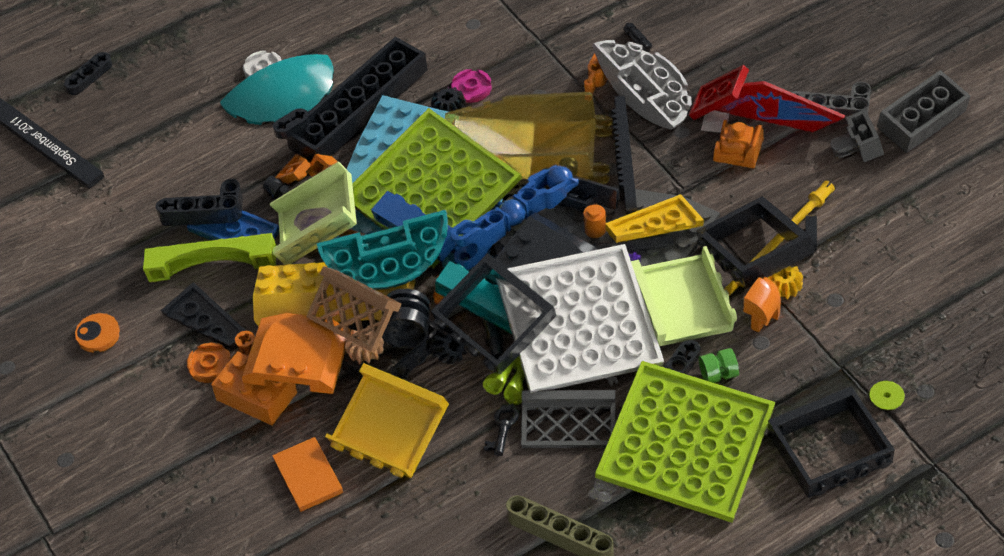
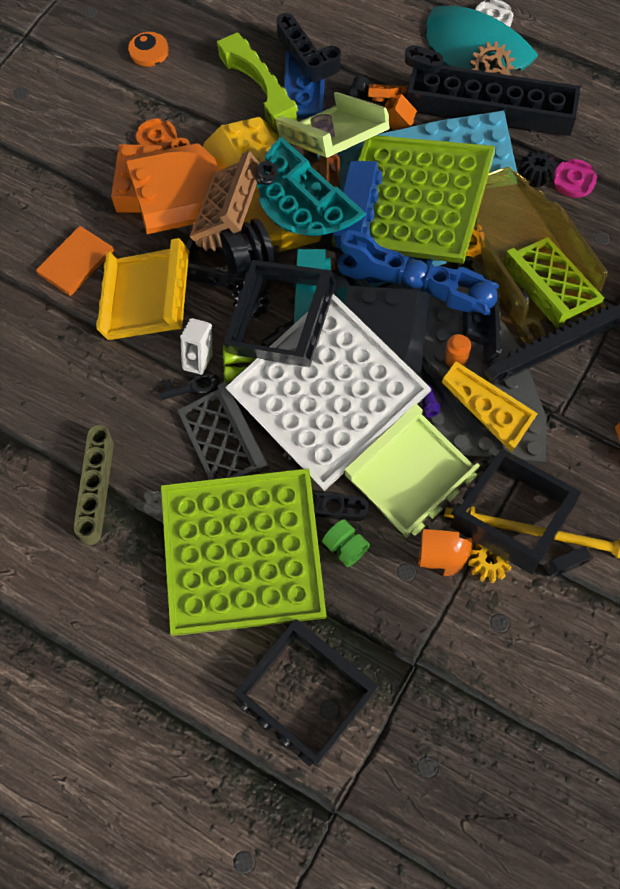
camera: 60 degrees right, 15 degrees up
(202, 314) = (200, 105): black wing -> none
(323, 83) = (485, 60): none -> medium nougat gear
(351, 266) = (266, 166): none -> black bush
(474, 399) = (196, 346): none -> white brick
(592, 143) = (538, 287): none -> lime fence
(887, 395) = (396, 727): lime piece -> none

